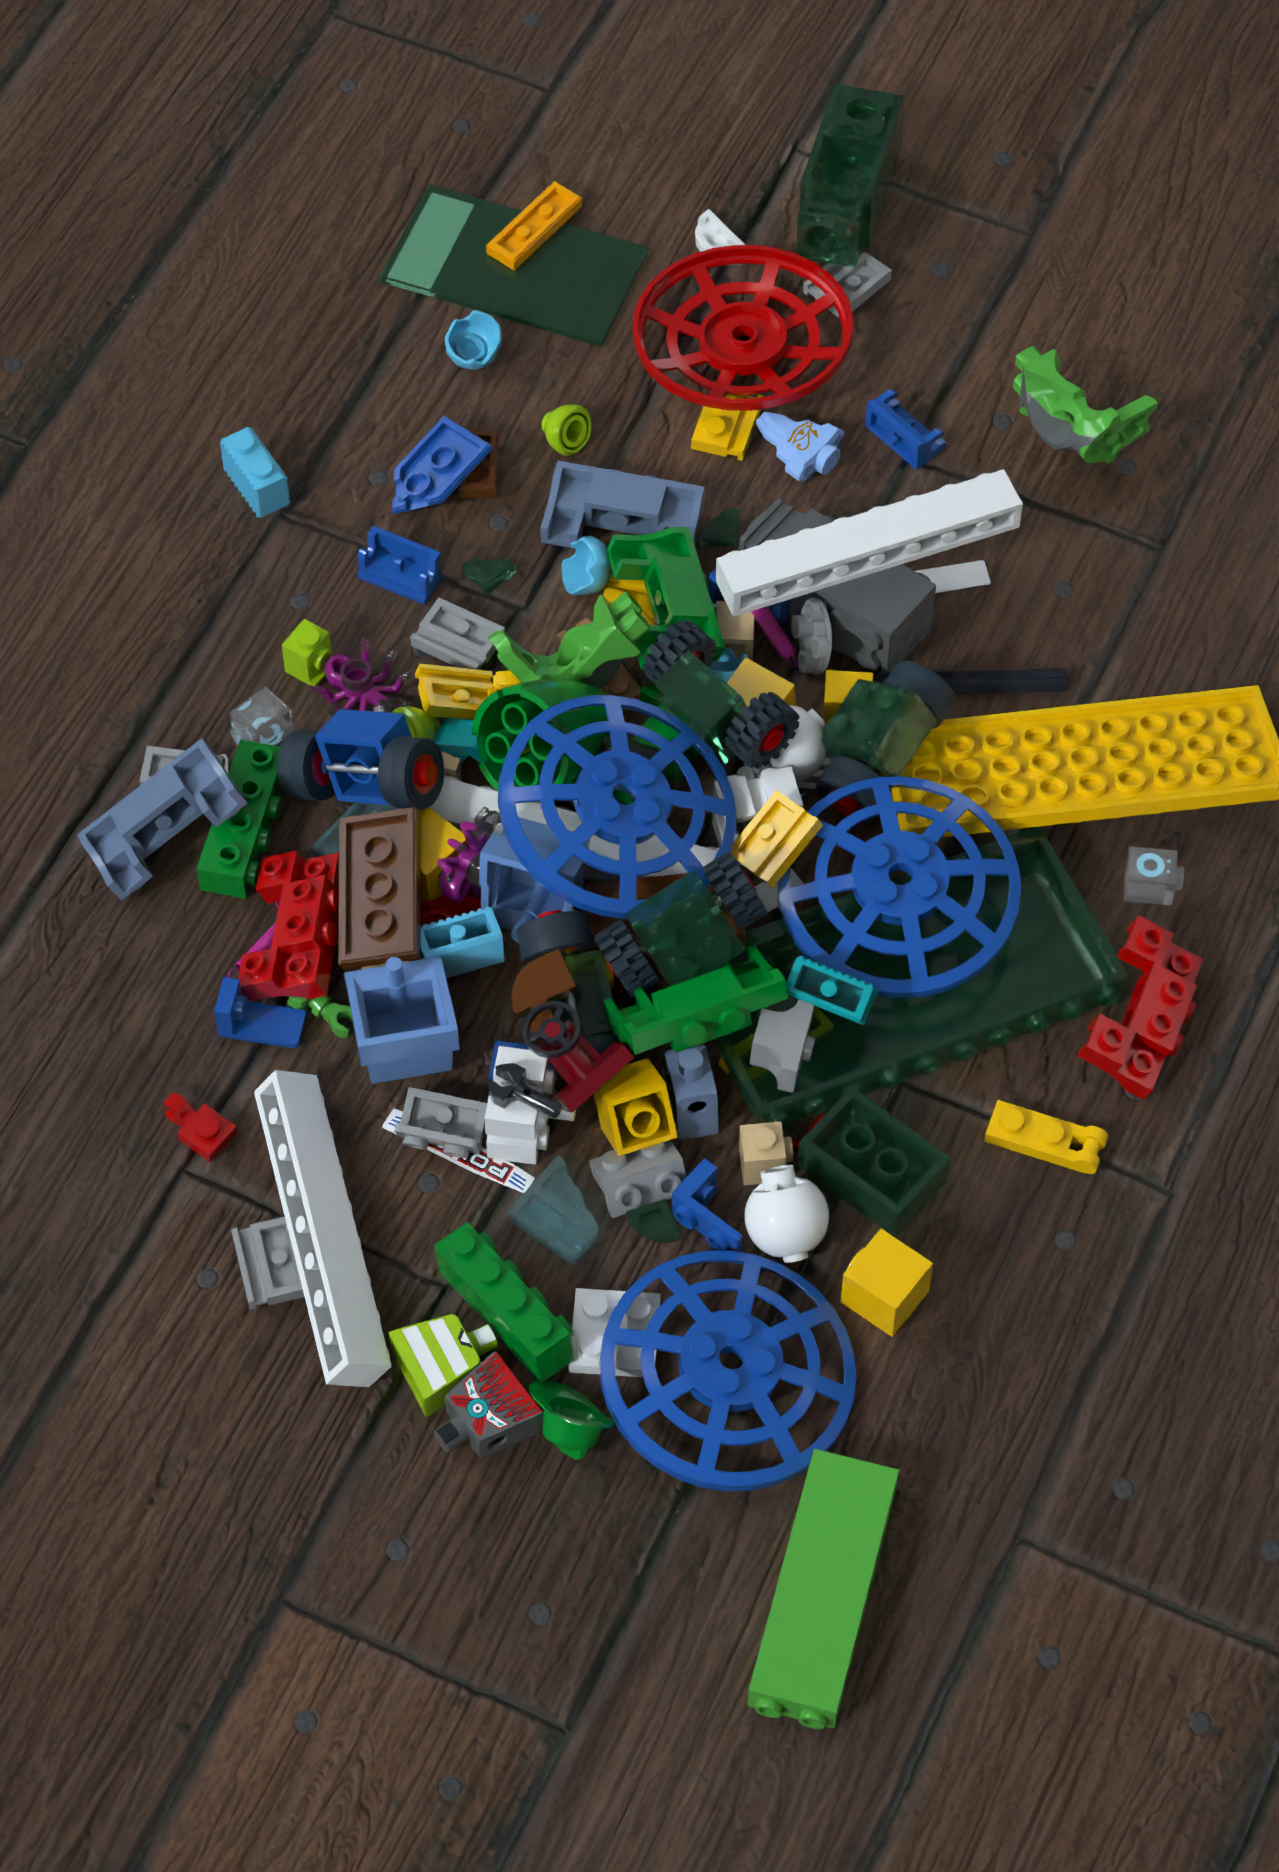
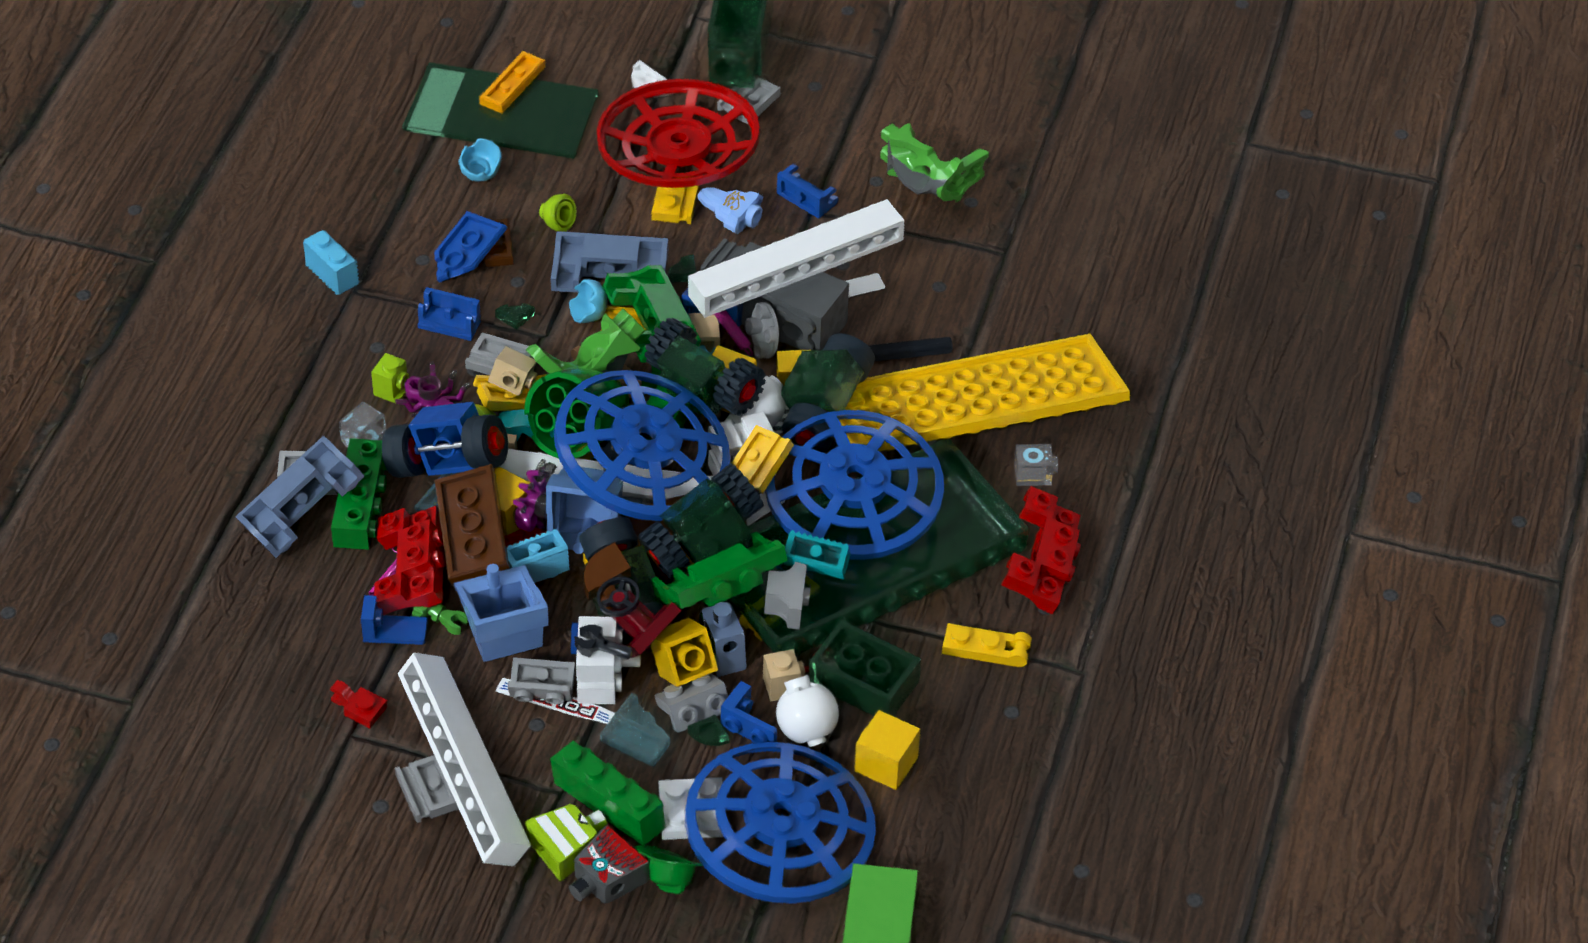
camera: 10 degrees left, 10 degrees down
(468, 664) = (513, 371): none -> tan brick

